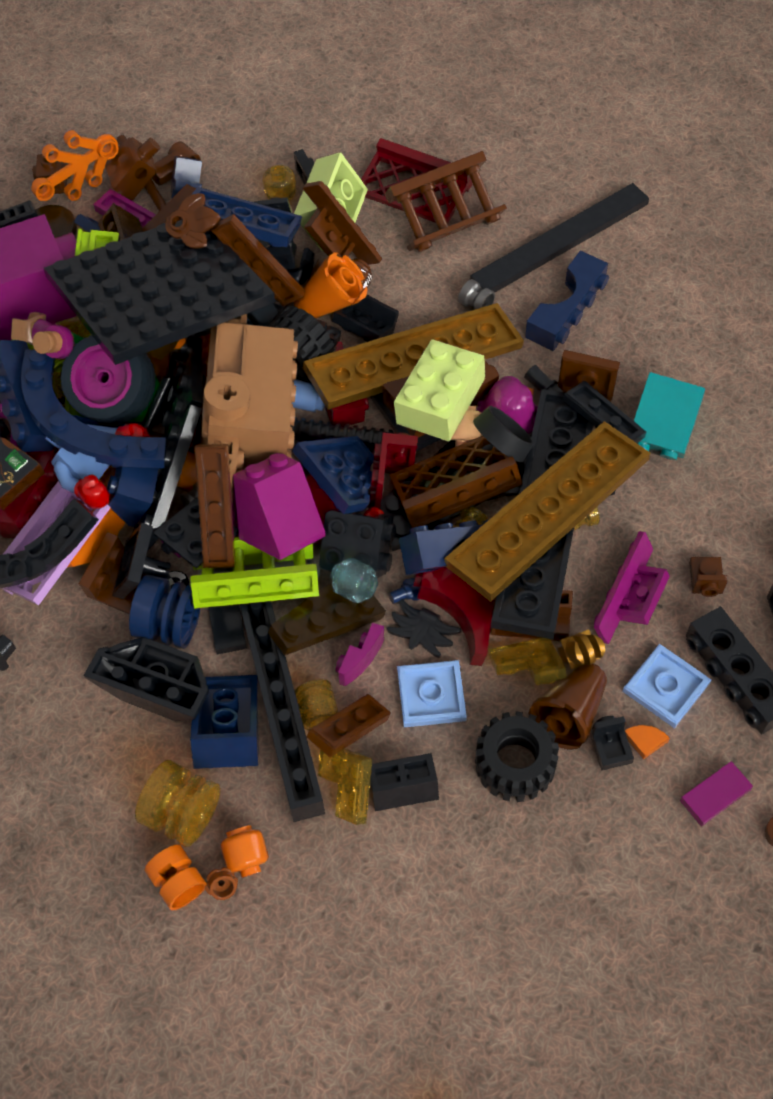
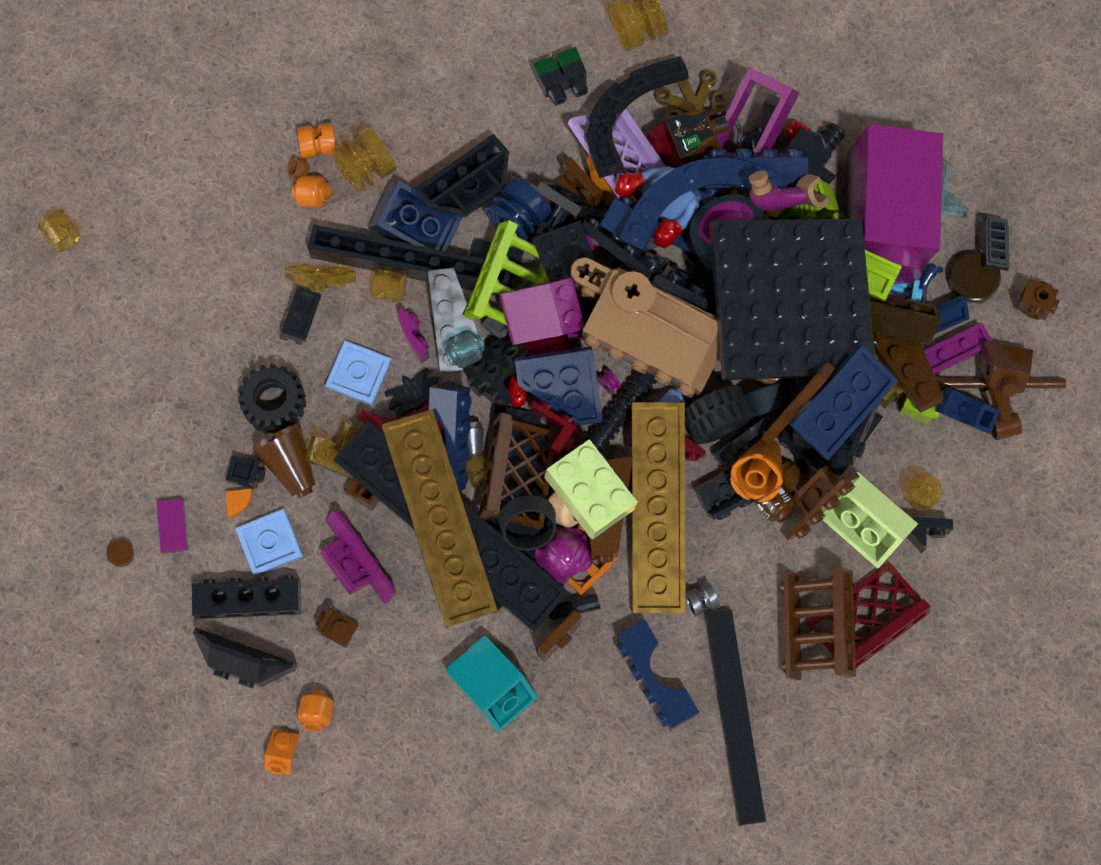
camera: 115 degrees right, 15 degrees up
(77, 165) = (1023, 312): orange plant -> none
(196, 221) = (840, 350): reddish brown plate -> none
(215, 505) = (556, 256): reddish brown tile -> none
(348, 725) = (357, 296): reddish brown tile -> none
(581, 649) = (323, 488): pearl gold arm -> none
(597, 409) = (510, 622): black tile -> none

